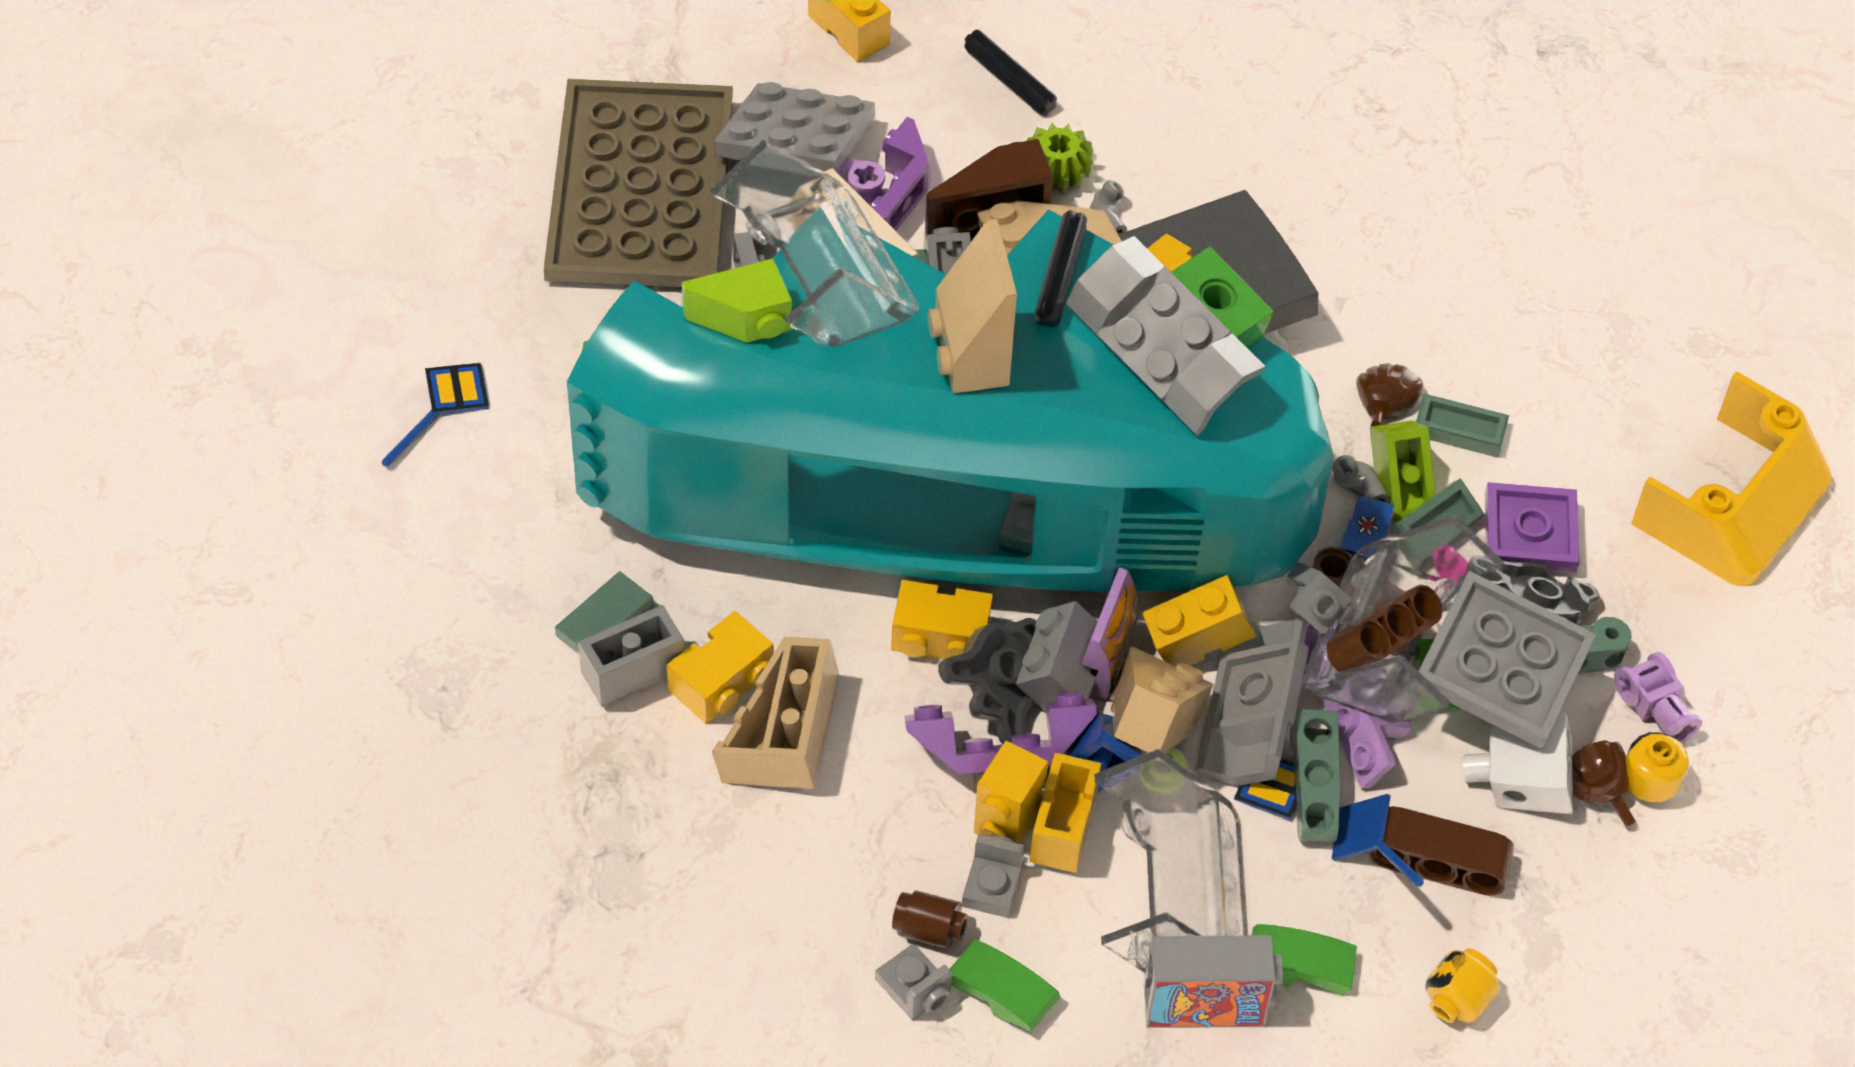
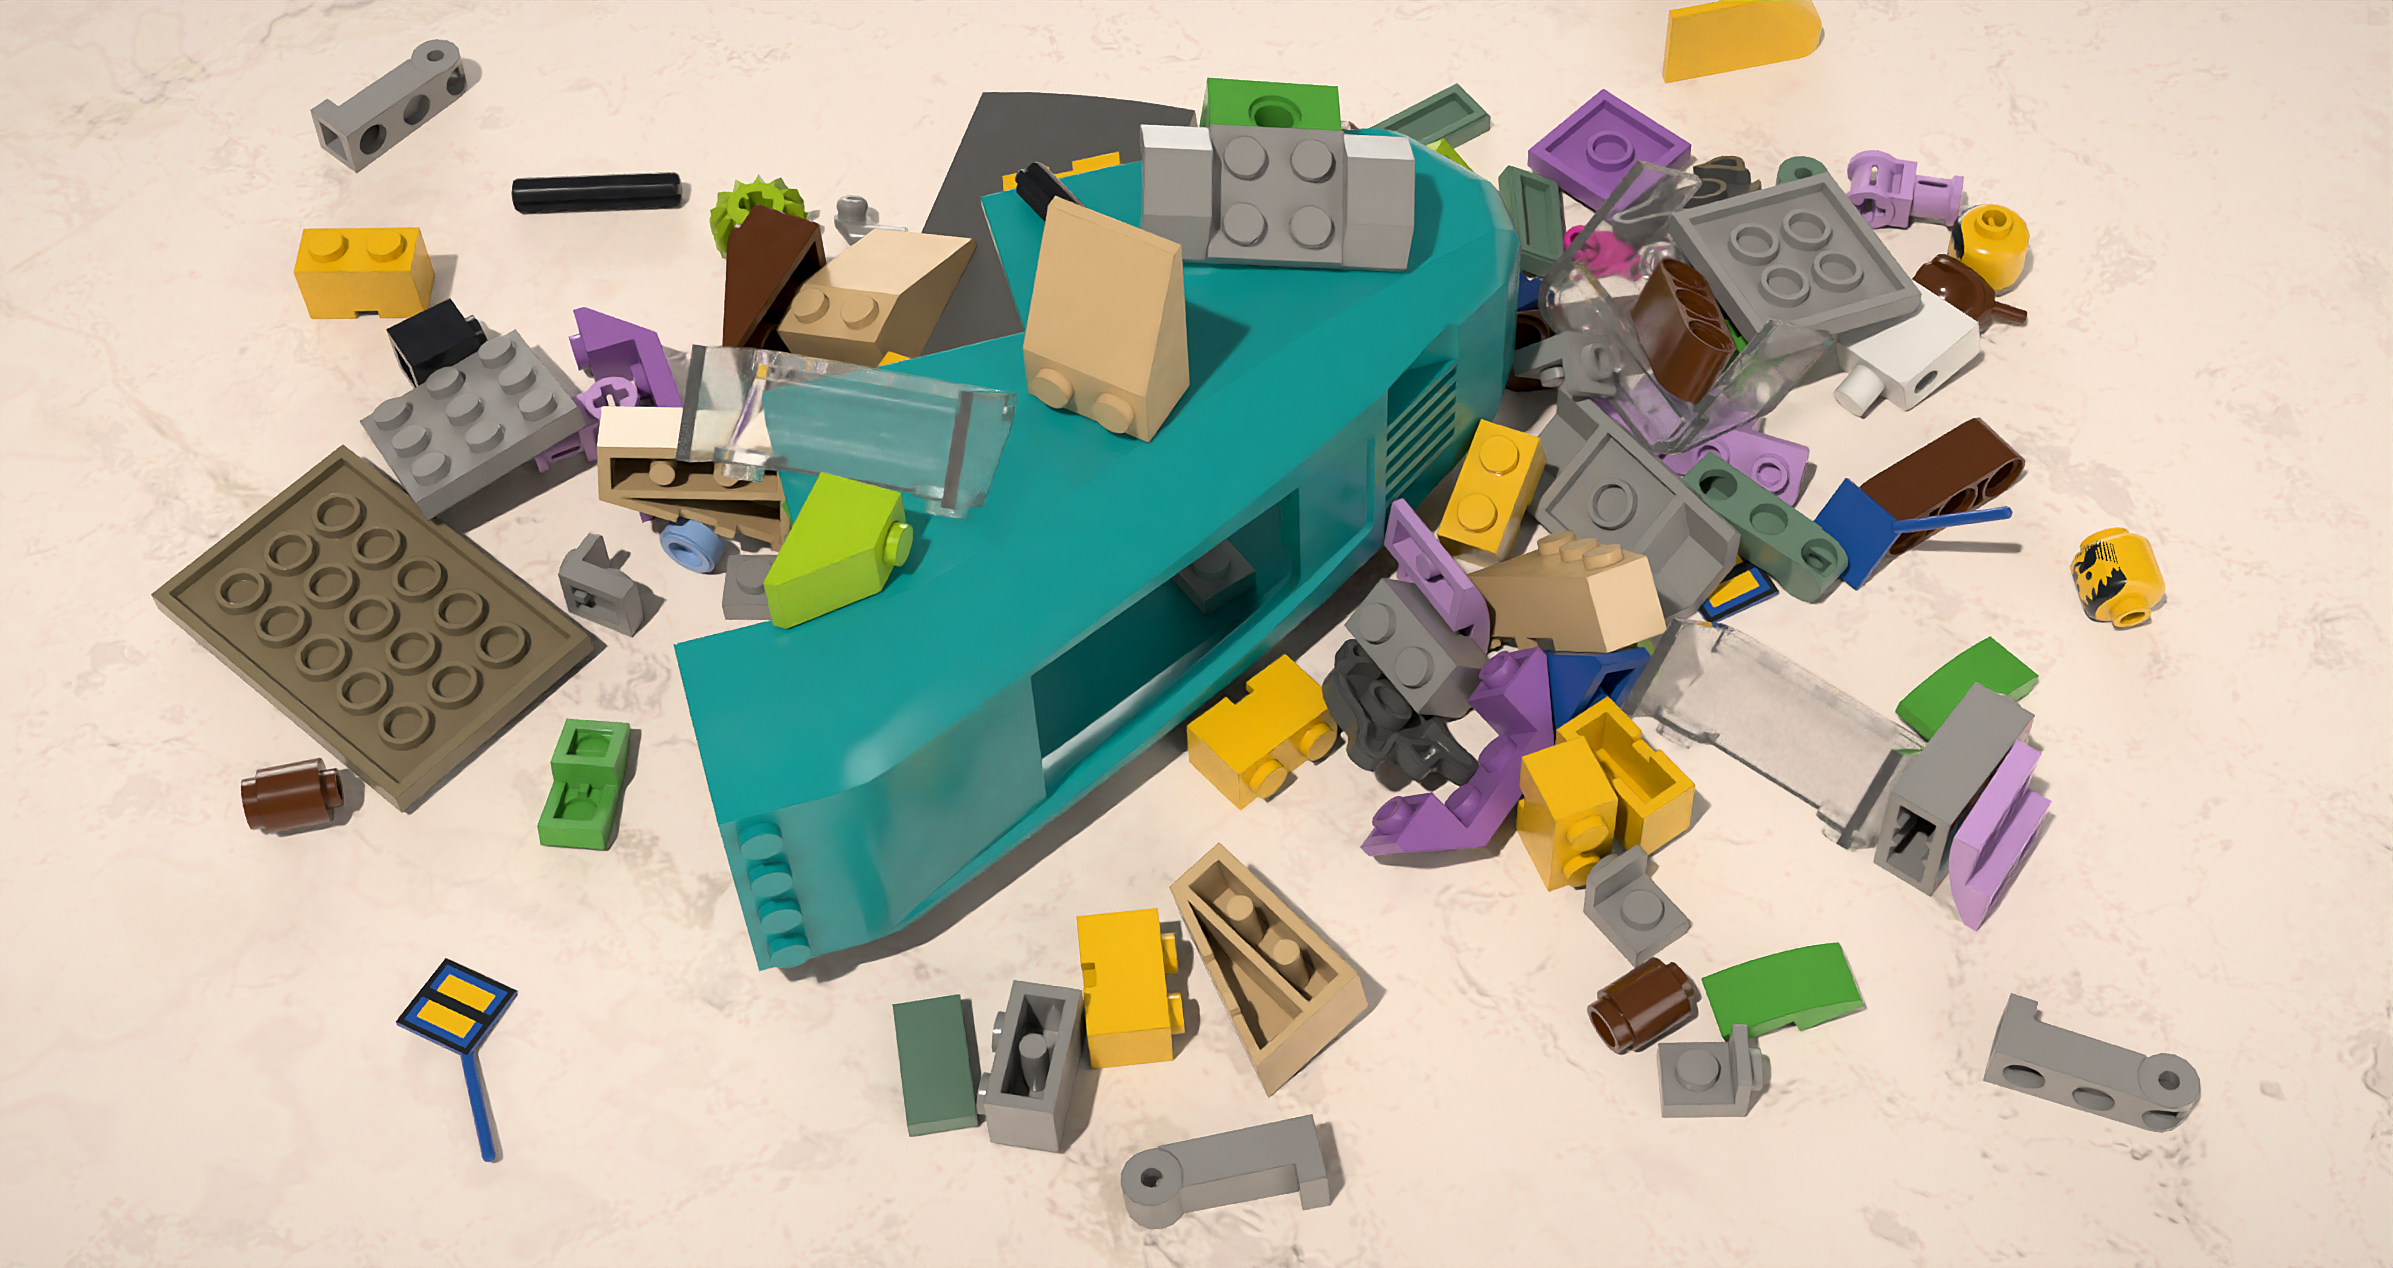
camera: 45 degrees left, 0 degrees up
(507, 226) = (291, 796): none -> reddish brown brick
(655, 788) = (1226, 1171): none -> light grey leg
(834, 74) = (434, 340): none -> black brick
(1195, 1022) = (1996, 835): none -> lavender slope

